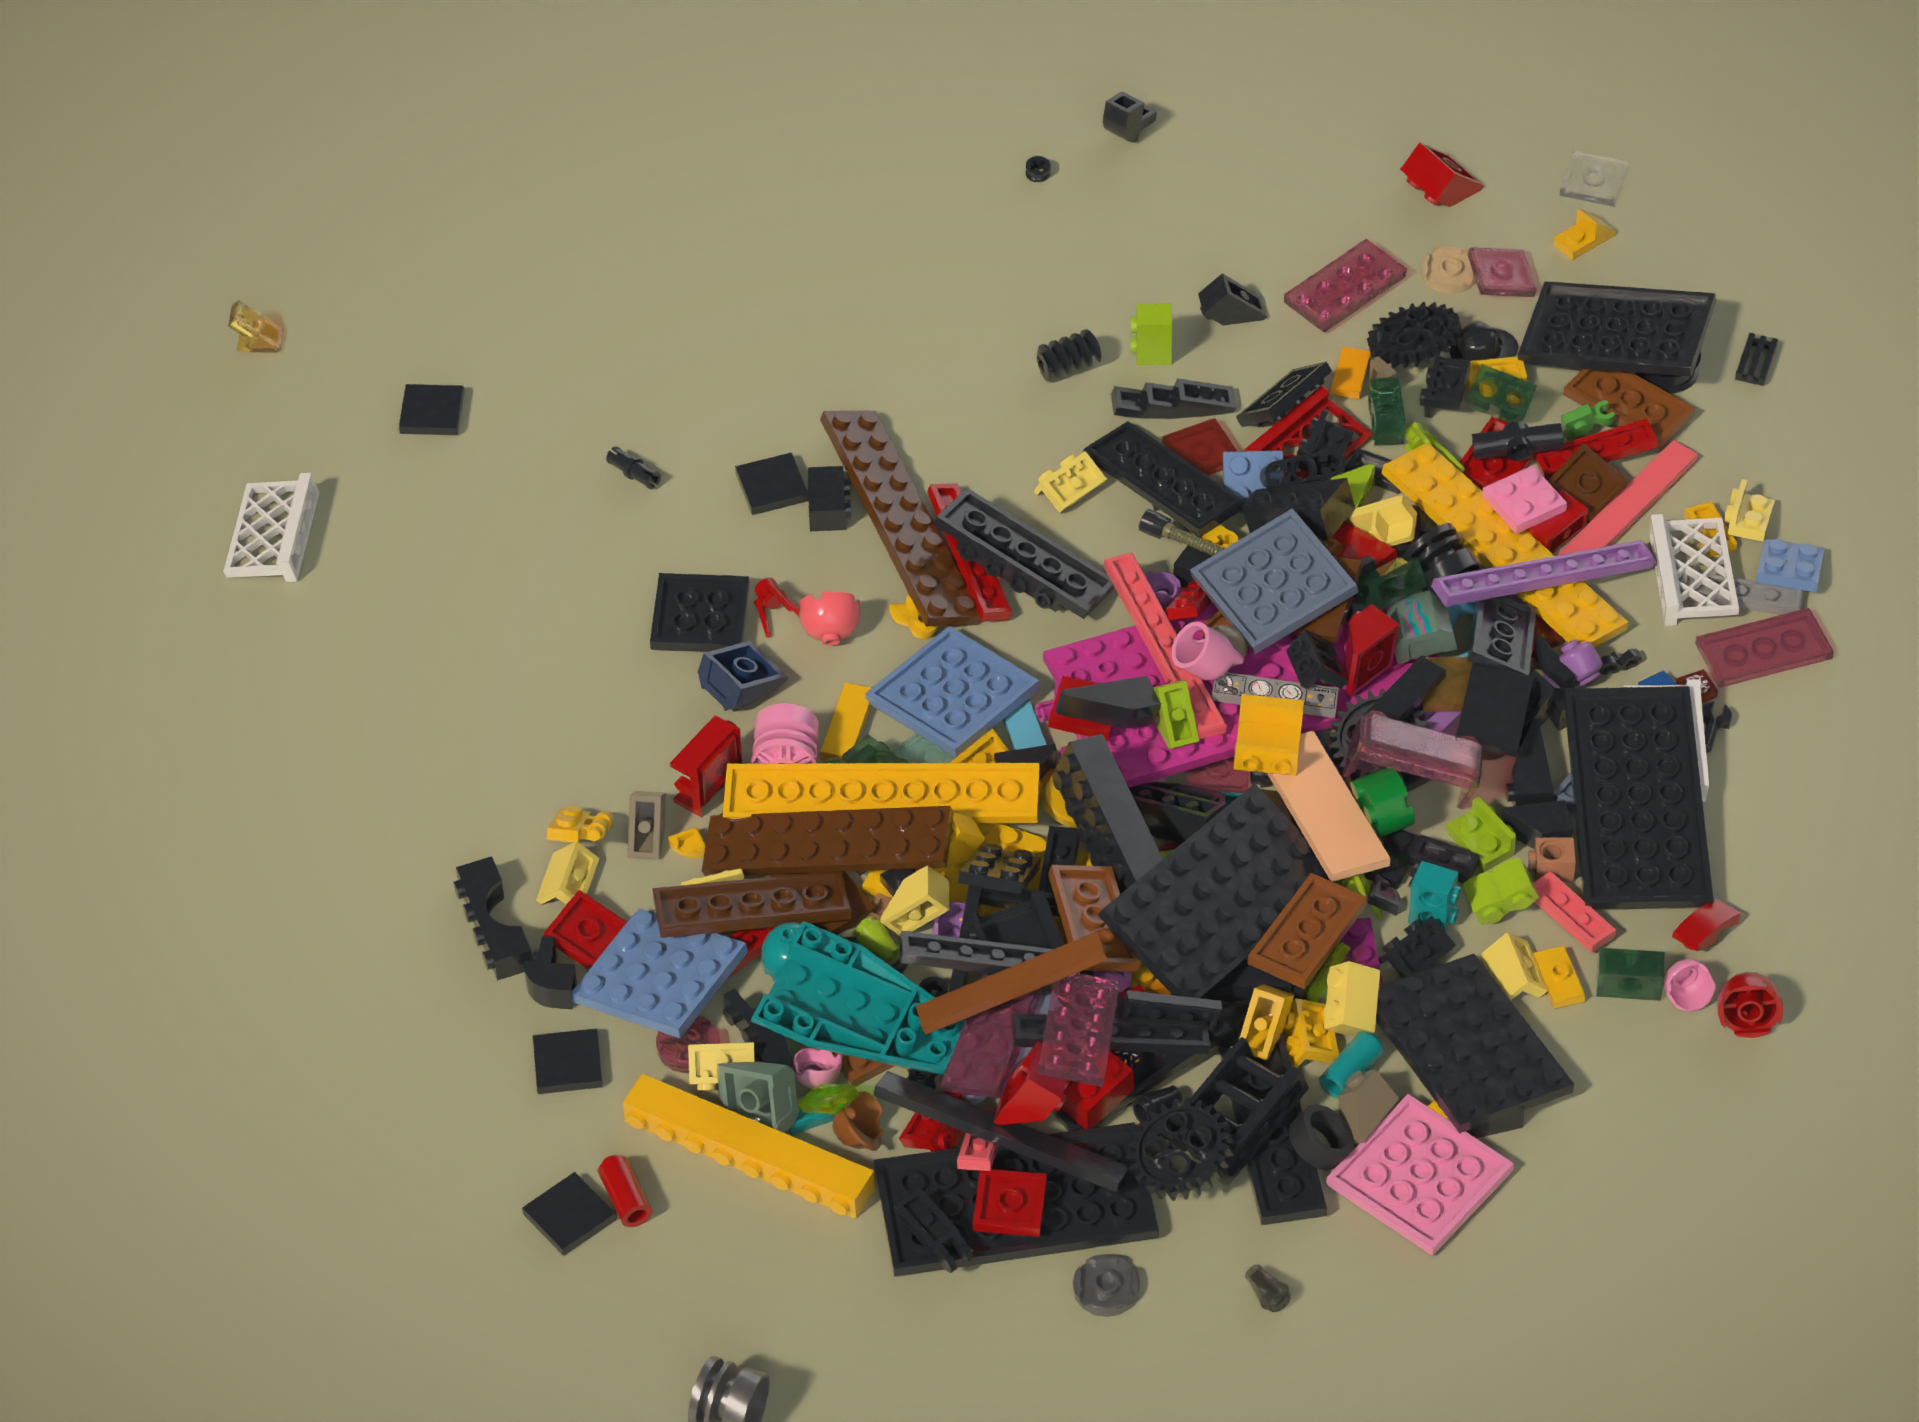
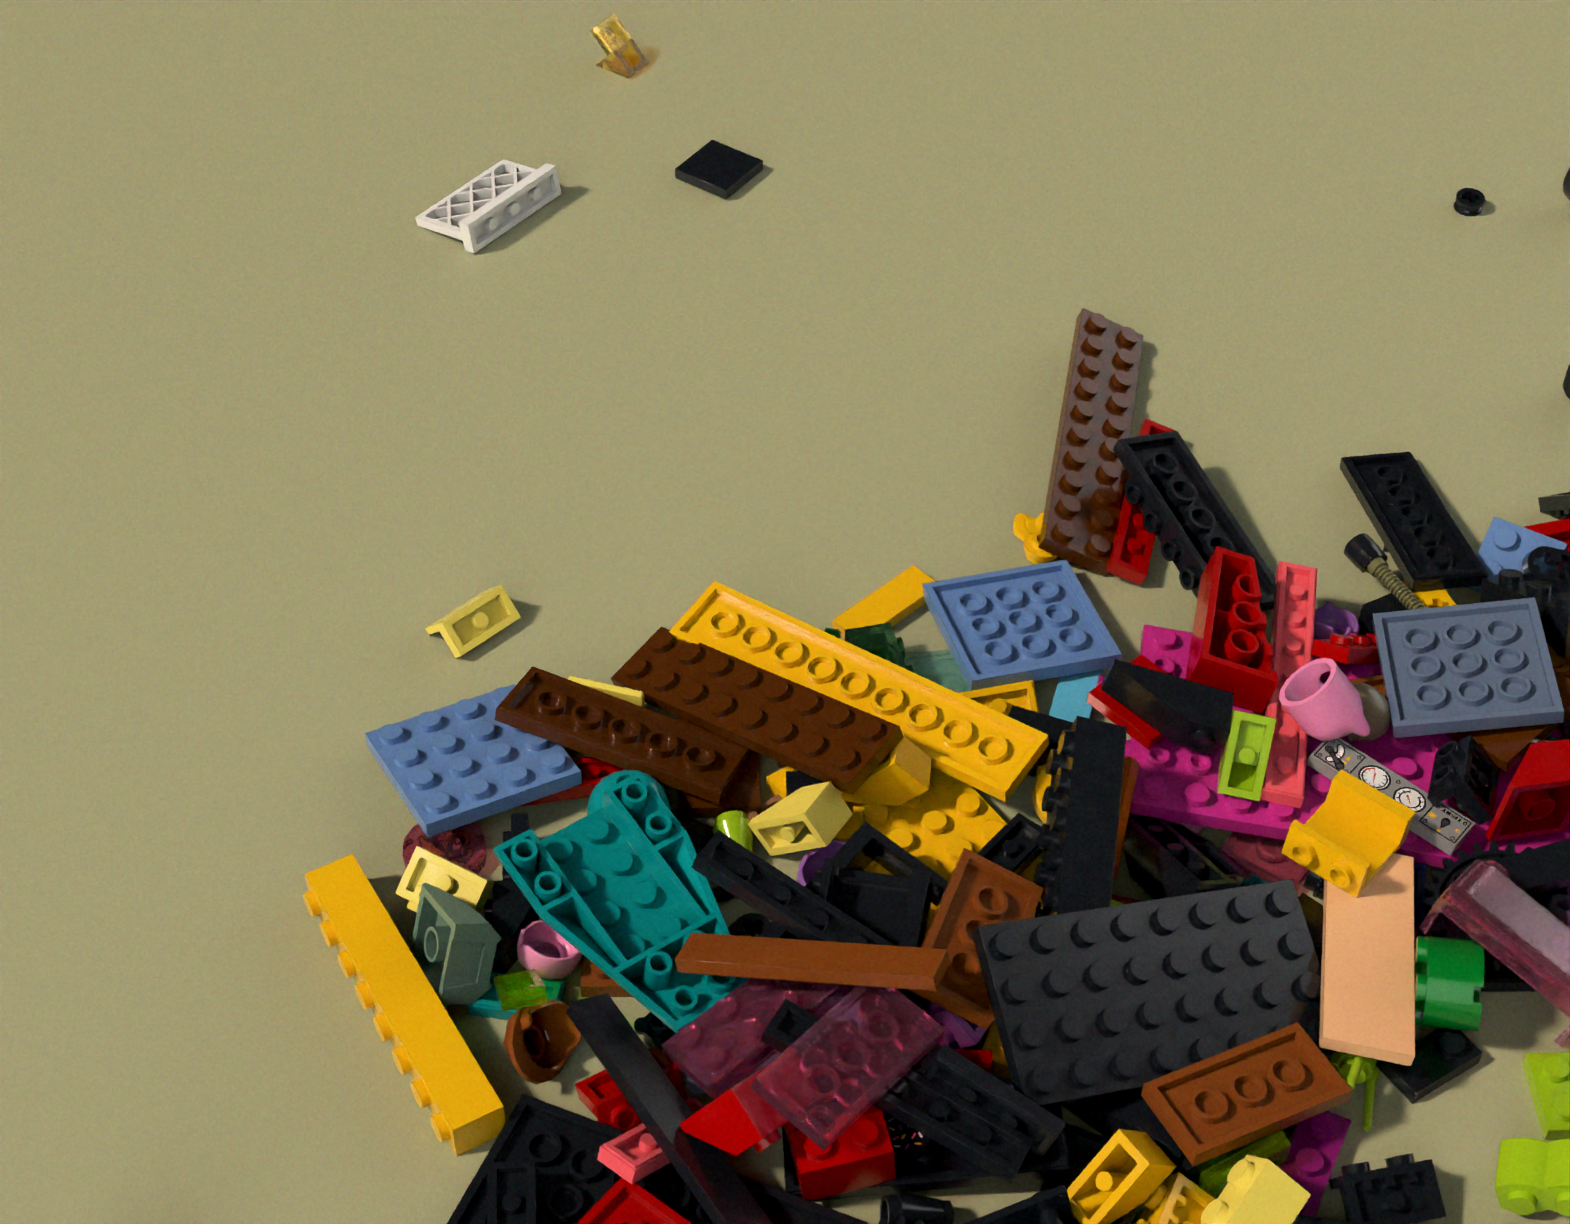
camera: 30 degrees right, 5 degrees down
(503, 944) = (373, 590): black arch -> none
(549, 981) = (363, 704): black brick -> none
(567, 1061) = (306, 804): black tile -> none
(569, 1213) = (156, 970): black tile -> none
(574, 824) = (520, 571): yellow plate -> none
(584, 929) = (438, 675): red tile -> none
(624, 1190) = (229, 976): red brick -> none
(633, 467) = (861, 287): black pin -> none
(646, 824) = (592, 604): dark tan slope -> none
(688, 843) = (622, 644): yellow tile -> none
(699, 612) = (818, 437): black plate -> none
(706, 763) = (690, 565): red window -> none
(738, 674) = (808, 507): dark blue slope -> none
(771, 483) = (988, 356): black tile -> none
(771, 596) = (902, 453): red plant -> none
(785, 735) = (798, 582): bright pink wheel -> none
(827, 498) = (1030, 390): black brick -> none
(830, 617) = (944, 493): coral cylinder -> none
(1000, 869) = (913, 828): black plate -> none
(1068, 352) = (1384, 363): black piece -> none
(1071, 482) = (1304, 481): light yellow bracket -> none
(1109, 631) = (1229, 632): none -> red wedge
(1153, 334) = (1490, 378): lime brick -> none
(1182, 400) = (1485, 458): black slope -> none
(1201, 445) = (1476, 506): clear red tile -> none
(1383, 896) = (1386, 1103): black tile -> none
(1434, 894) = (1451, 1133): teal brick -> none
(1443, 855) = (1494, 1095): black plate -> none

